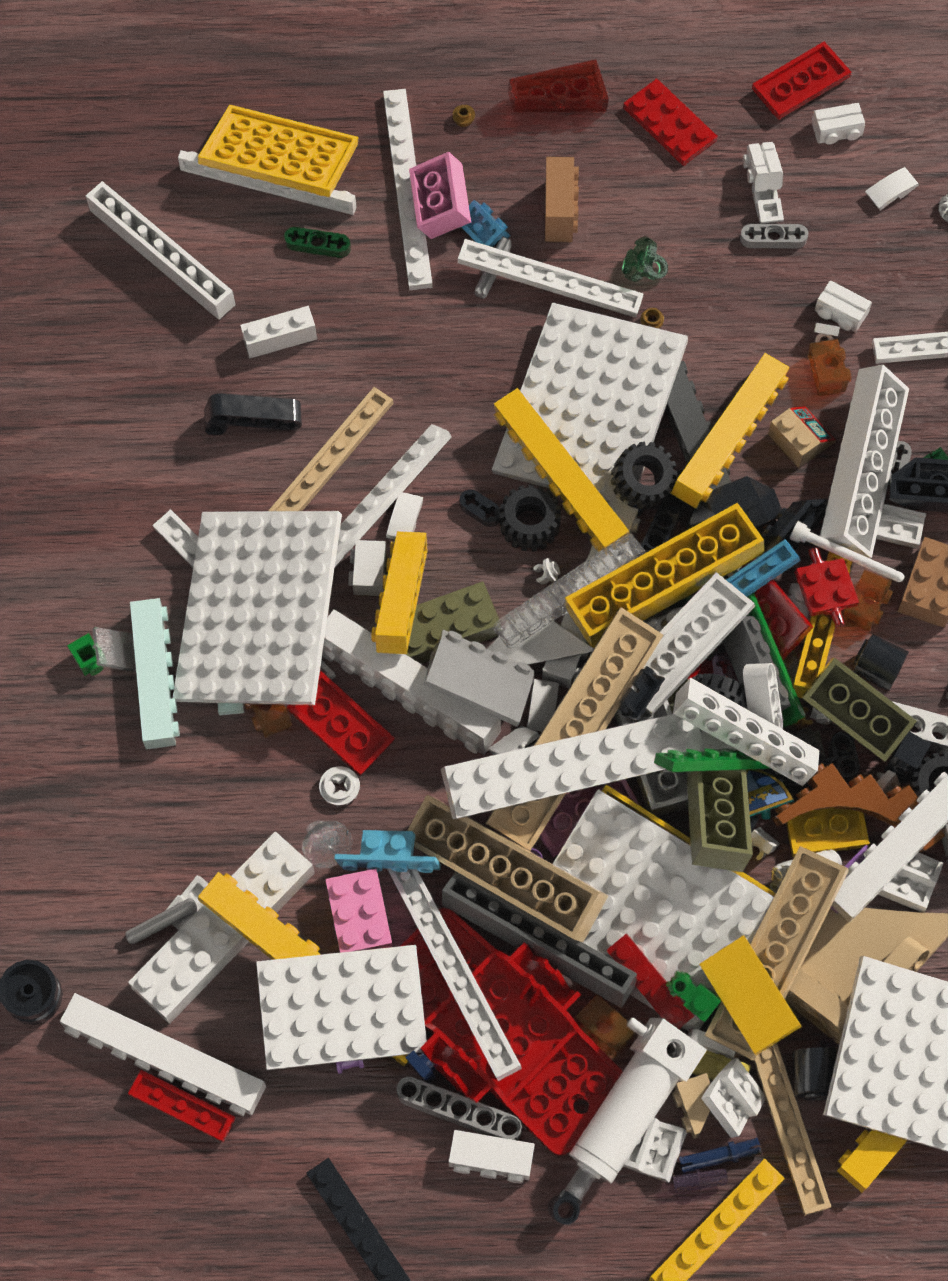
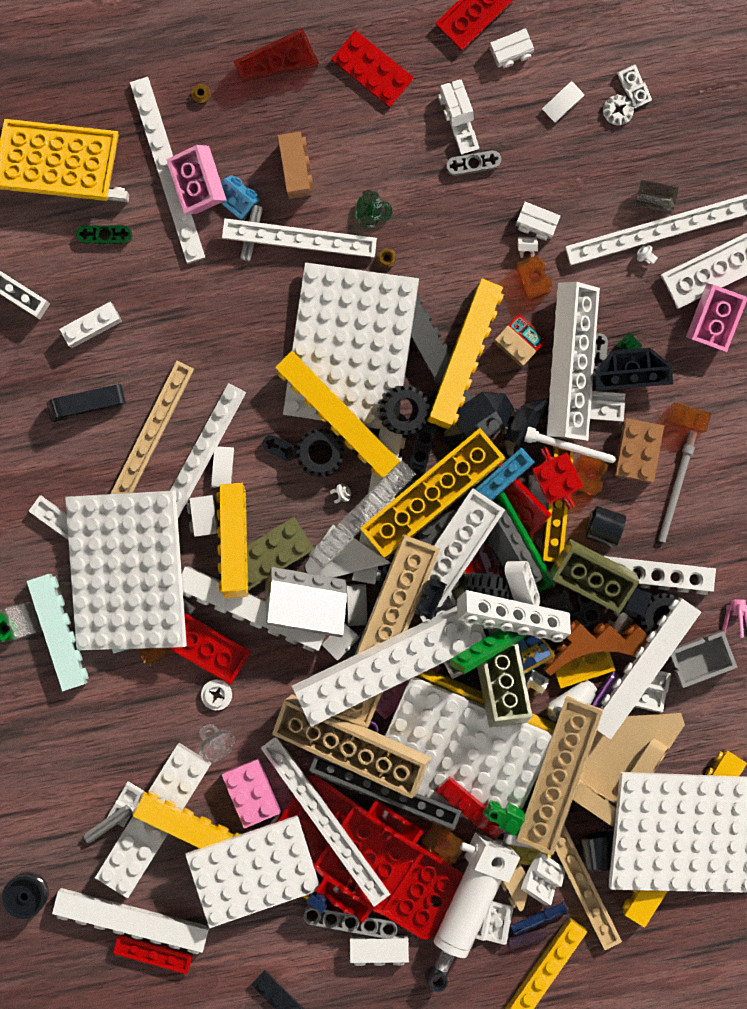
camera: 15 degrees left, 20 degrees up
(388, 851) = (263, 743): medium azure bracket -> none
(750, 995) = (544, 811): yellow tile -> none

